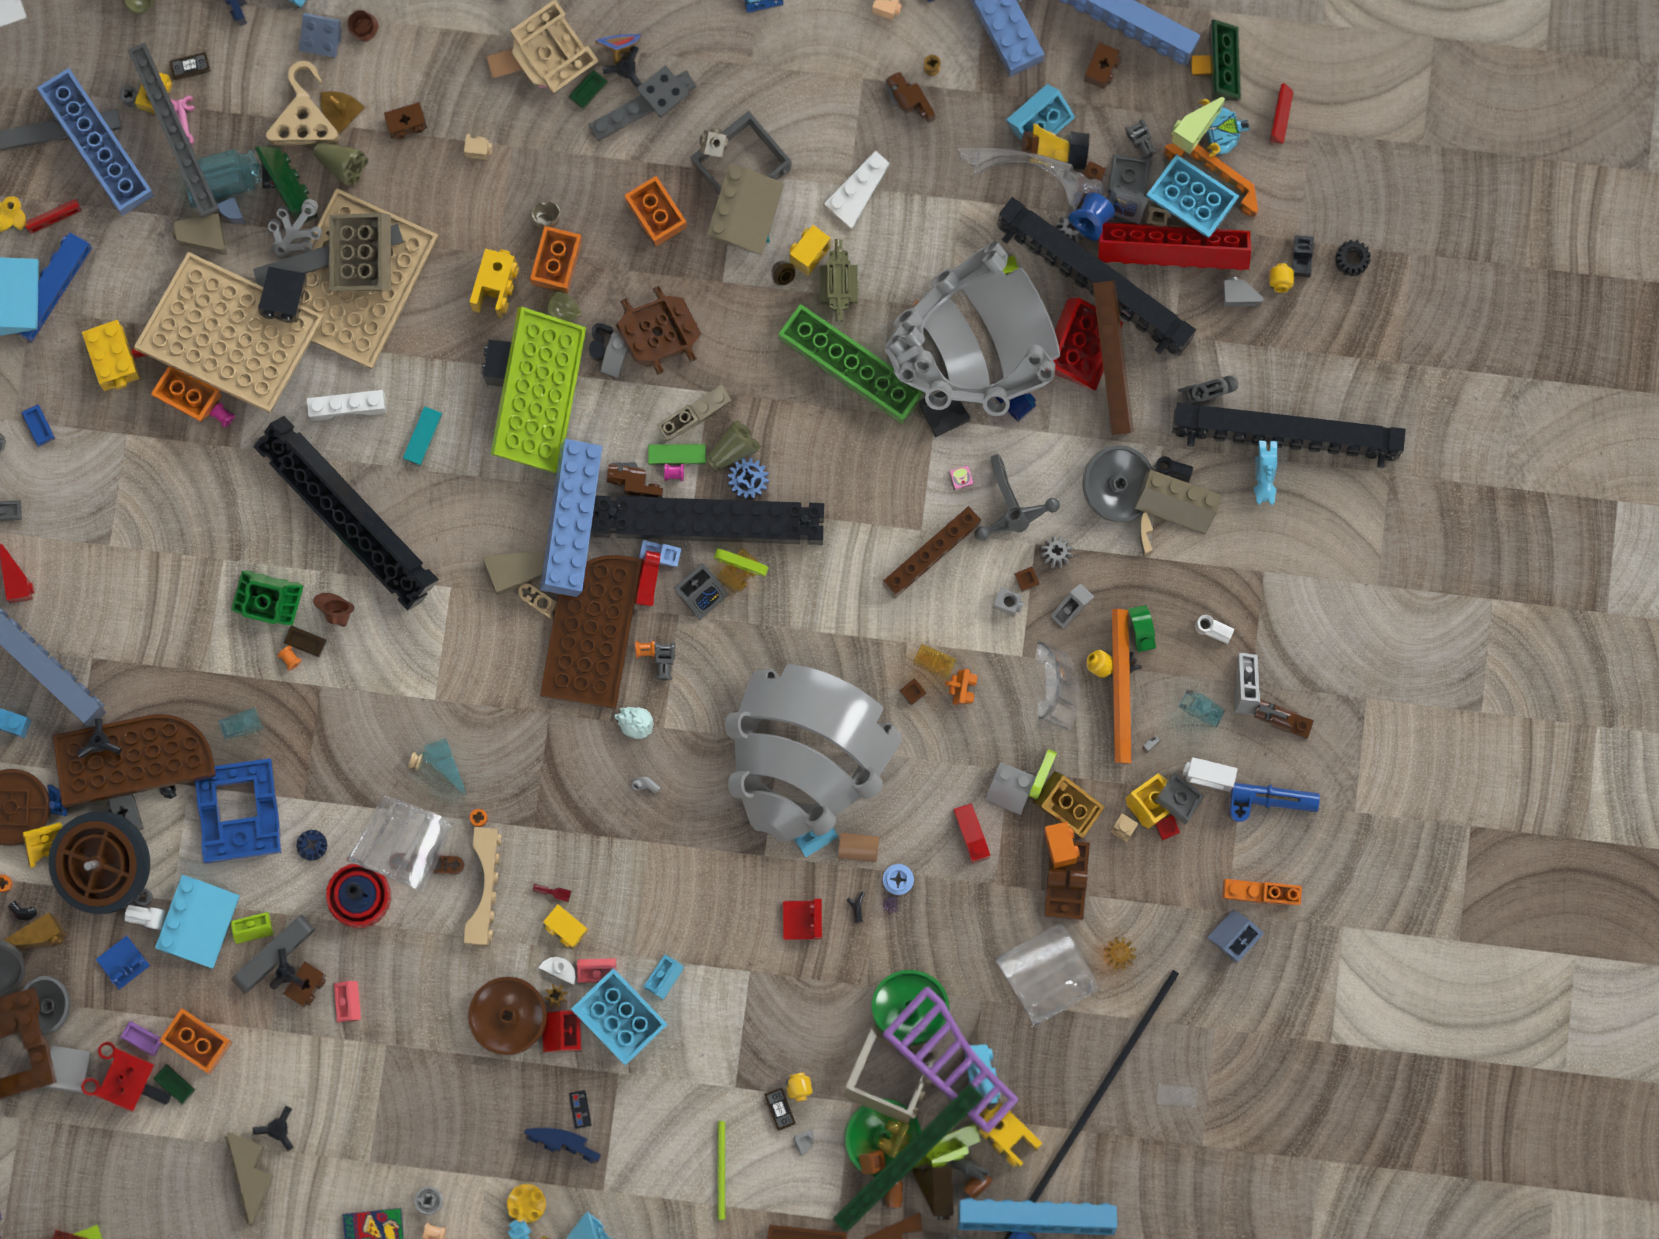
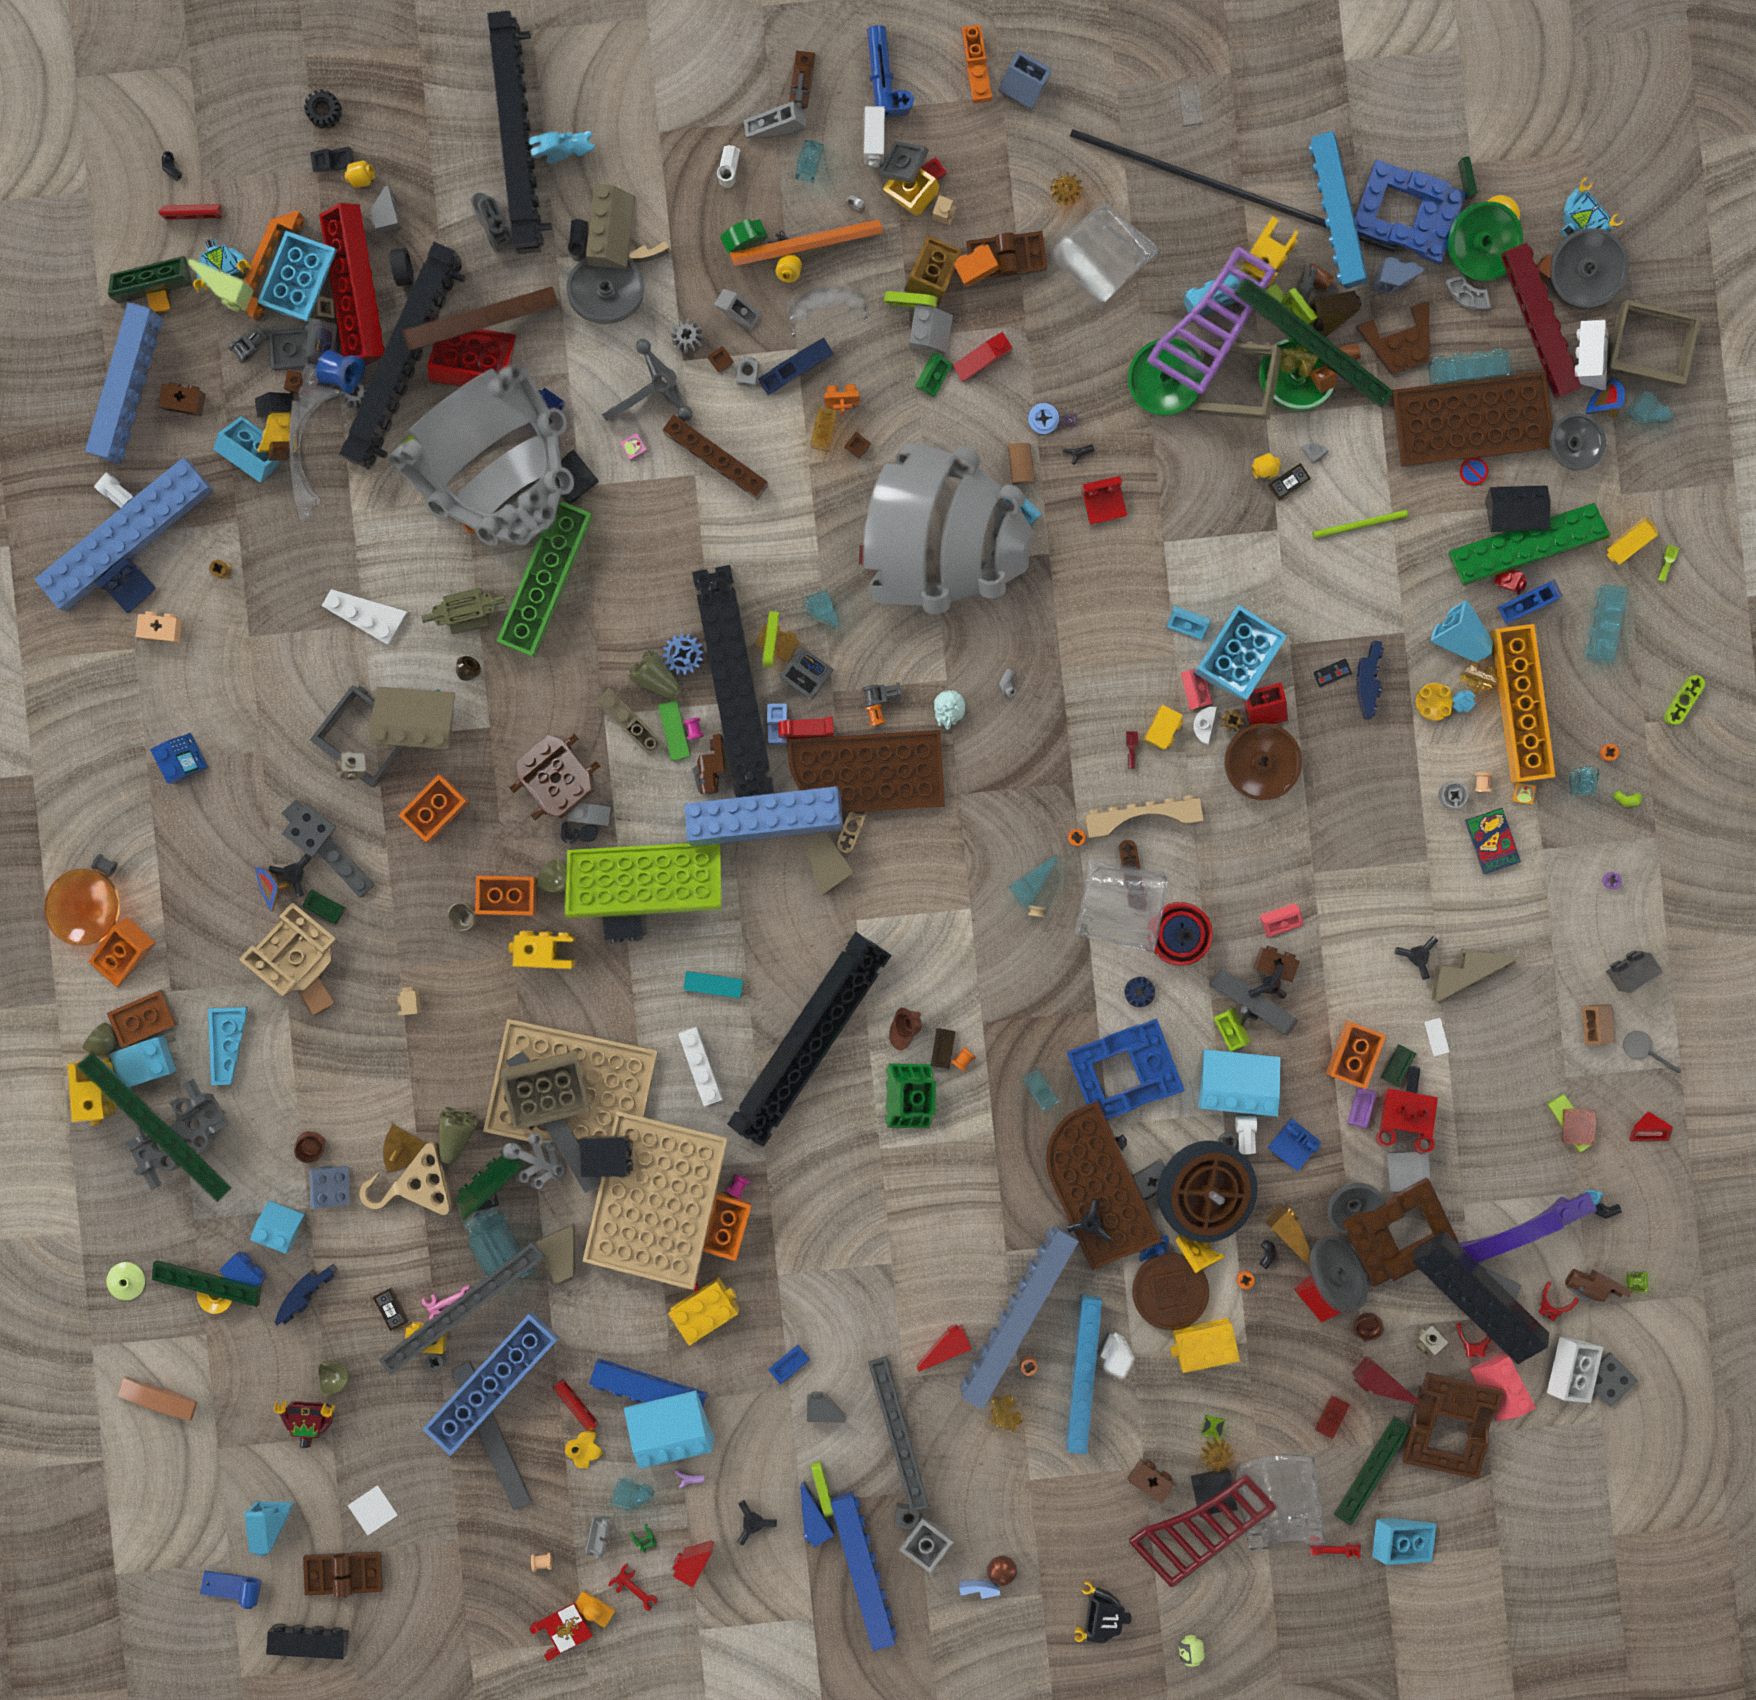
camera: 100 degrees left, 10 degrees up
(192, 1130) = (1436, 1037): none -> white sticker
(230, 211) = (530, 1229): sand blue brick -> none
(262, 942) = (1246, 1014): none -> black bar
(396, 117) = (391, 1072): reddish brown brick -> none
(760, 621) = (821, 608): none -> clear light blue slope
(809, 250) = (443, 647): yellow brick -> none
(908, 96) = (258, 585): reddish brown plate -> none
(966, 782) = (933, 374): none -> green slope
(1003, 649) = (795, 366): none -> dark blue slope
(1182, 296) = (401, 267): none -> black tyre
(1329, 103) = (168, 165): none -> black arm

